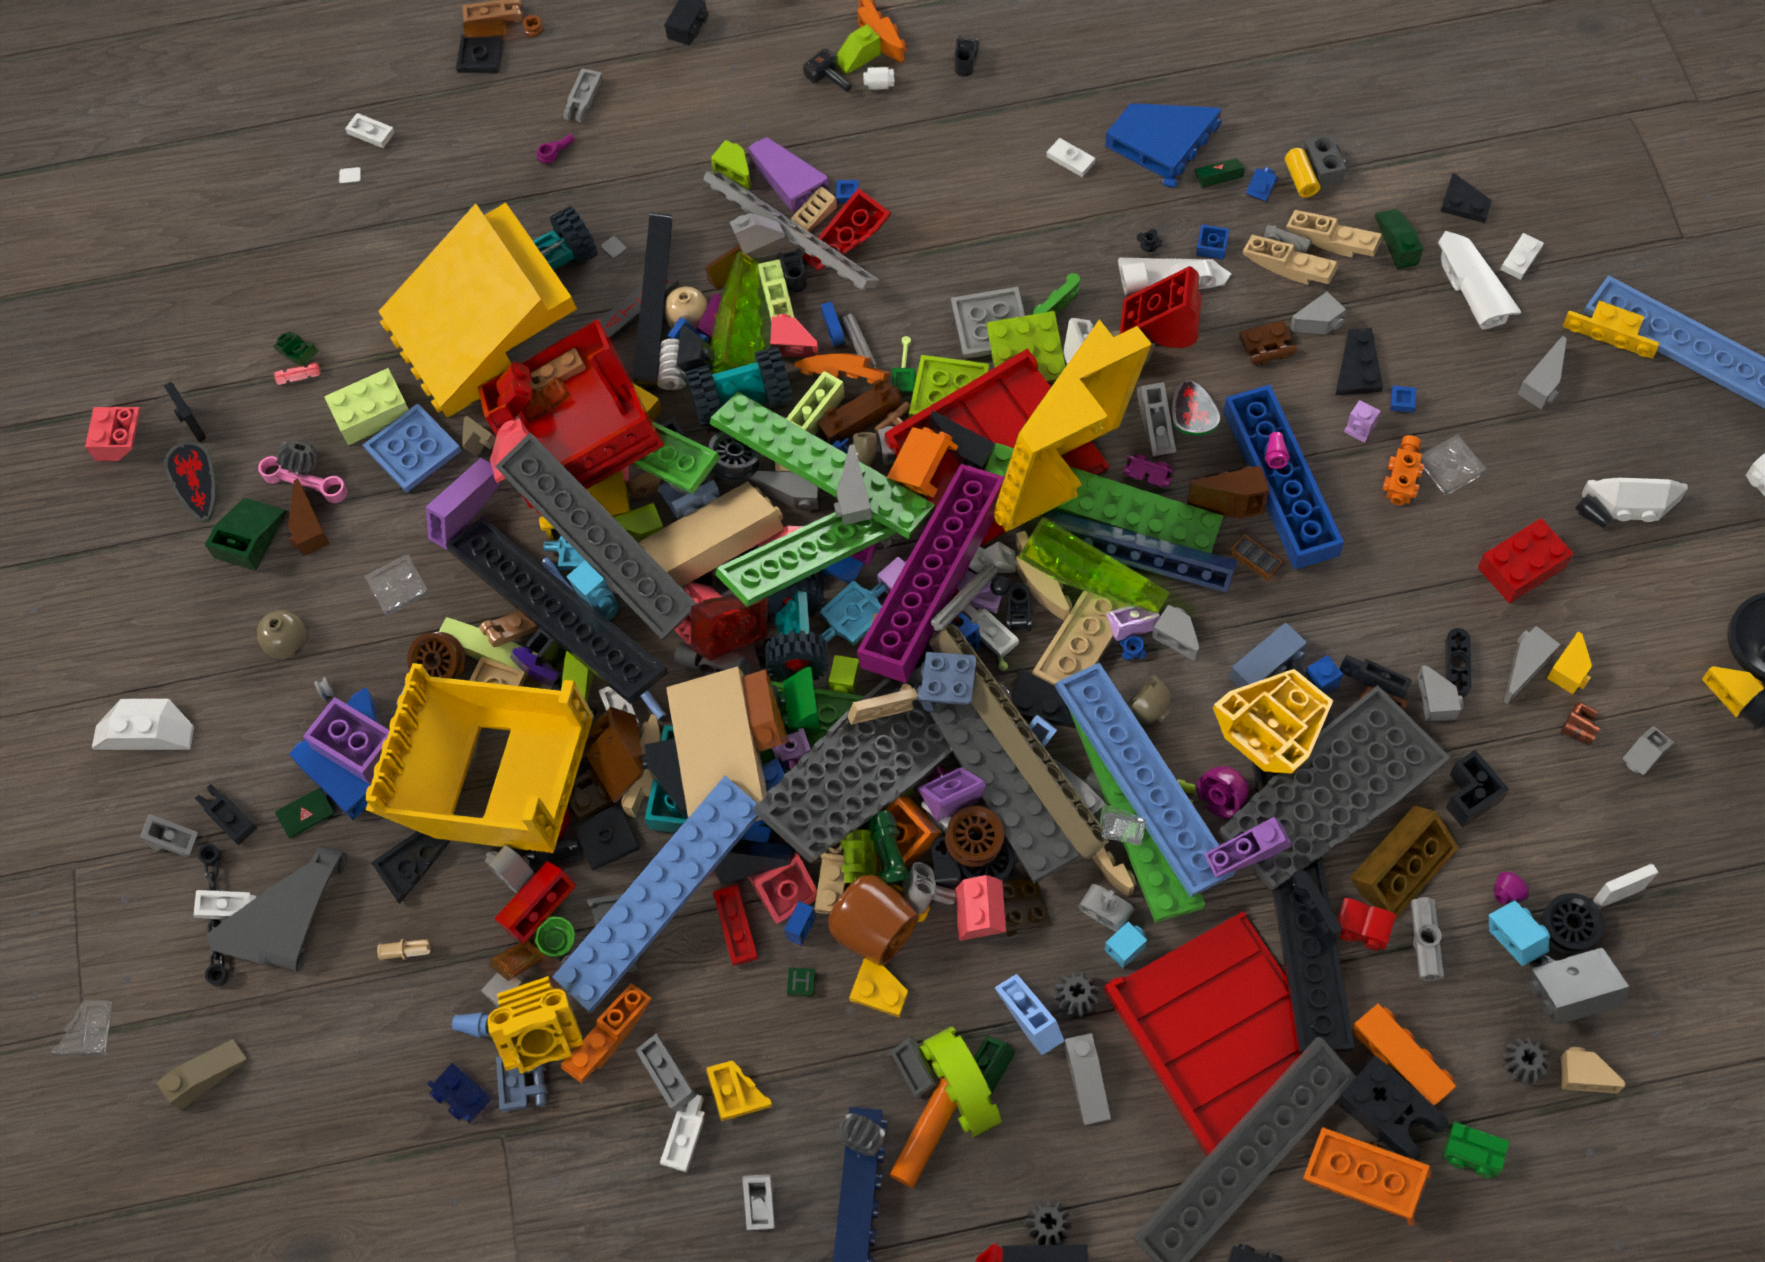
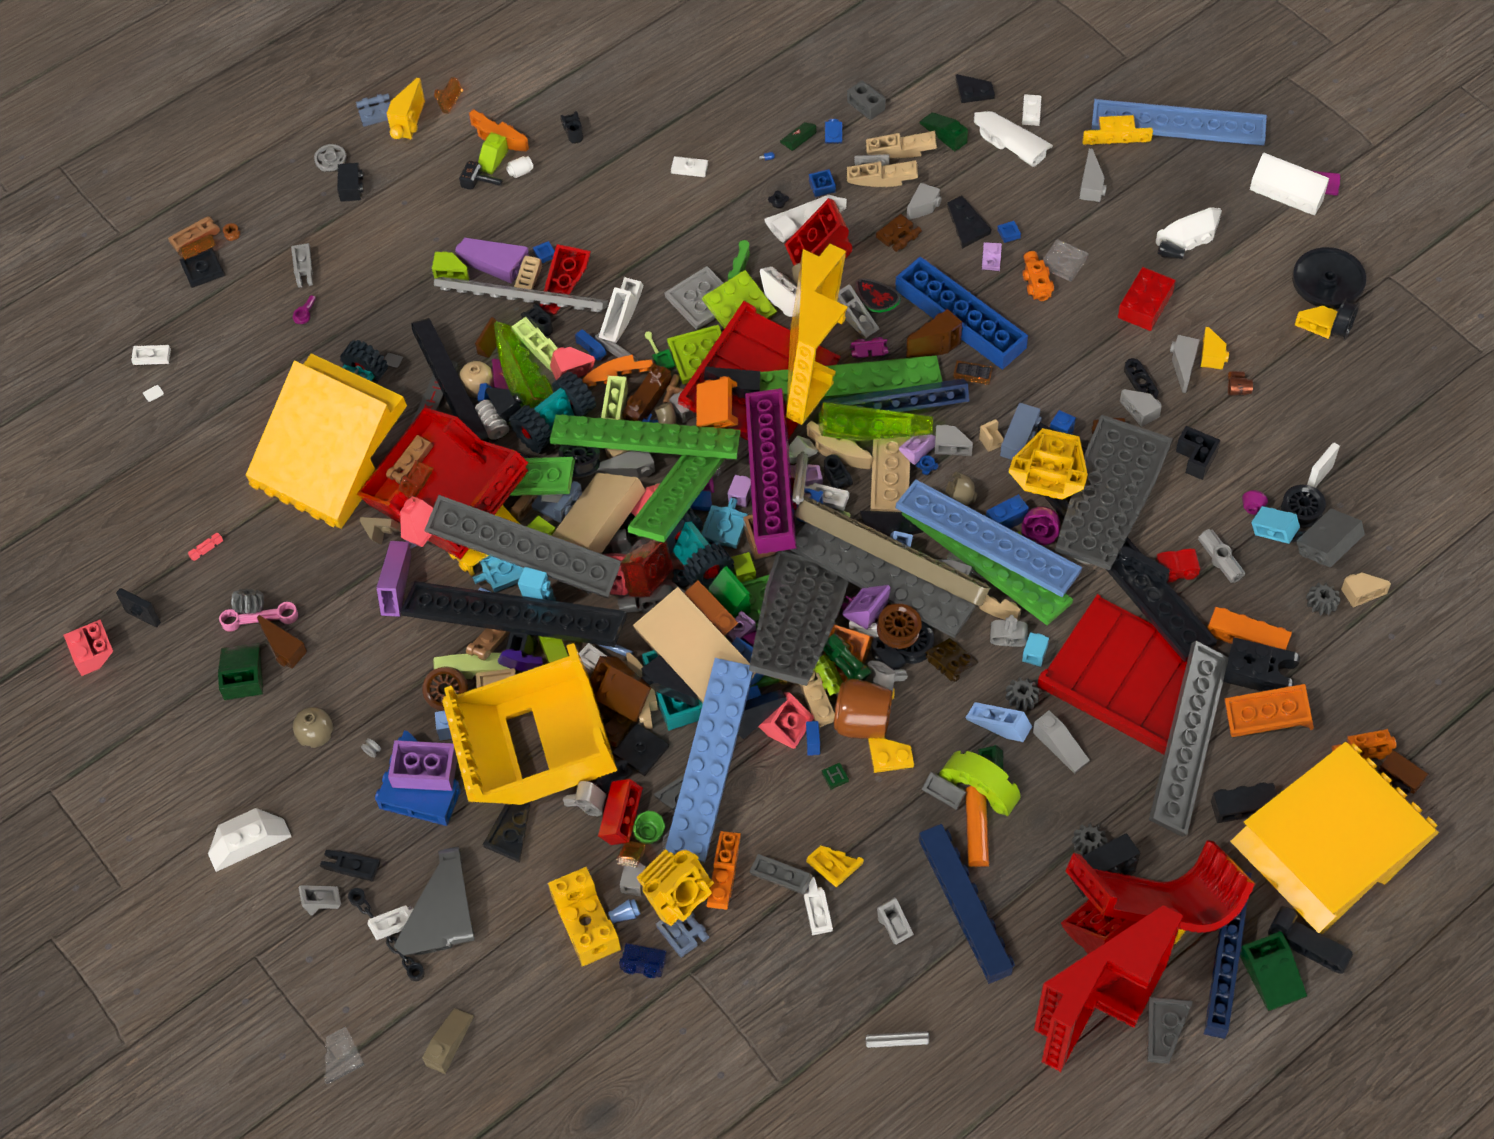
camera: 30 degrees left, 5 degrees down
(192, 478) = (173, 651): shield -> none
(294, 348) = (192, 530): dark green slope -> none
(304, 812) = (410, 836): dark green slope -> none
(366, 406) = (278, 544): yellowish green brick -> none
(397, 585) = (379, 655): clear plate -> none
(404, 949) = (540, 890): tan axle -> none
(412, 448) = (330, 558): medium blue plate -> none
(428, 980) = (576, 899): none -> yellow plate
(515, 388) = (390, 478): red brick -> none
(735, 925) = (768, 761): red plate -> none
(755, 231) = (500, 303): light grey slope -> none
(851, 493) = (686, 444): light grey slope -> none
(861, 1134) = (940, 841): dark grey gear -> none
(883, 705) = (788, 570): tan hinge -> none
(889, 297) = (620, 309): none -> white slope
(946, 679) = (824, 532): sand blue bracket -> none
(980, 907) = (927, 670): coral slope -> none
(1000, 585) = (816, 462): black hinge -> none
(1121, 825) = (992, 572): clear slope -> none
(1162, 135) = (745, 127): blue slope -> none
(1190, 756) = (1009, 513): none -> blue brick
(1230, 647) = (990, 435): none -> tan panel
(1249, 848) = (1083, 547): medium lavender slope -> none
(1276, 453) = (952, 296): dark pink cone -> none
(1302, 172) = (855, 113): yellow brick -> none
(1375, 674) = (1094, 411): black hinge -> none
(1405, 861) = (1180, 514): pearl gold slope -> none
(1475, 1150) = (1323, 666): green brick -> none
(1647, 751) = (1288, 382): light grey slope -> none

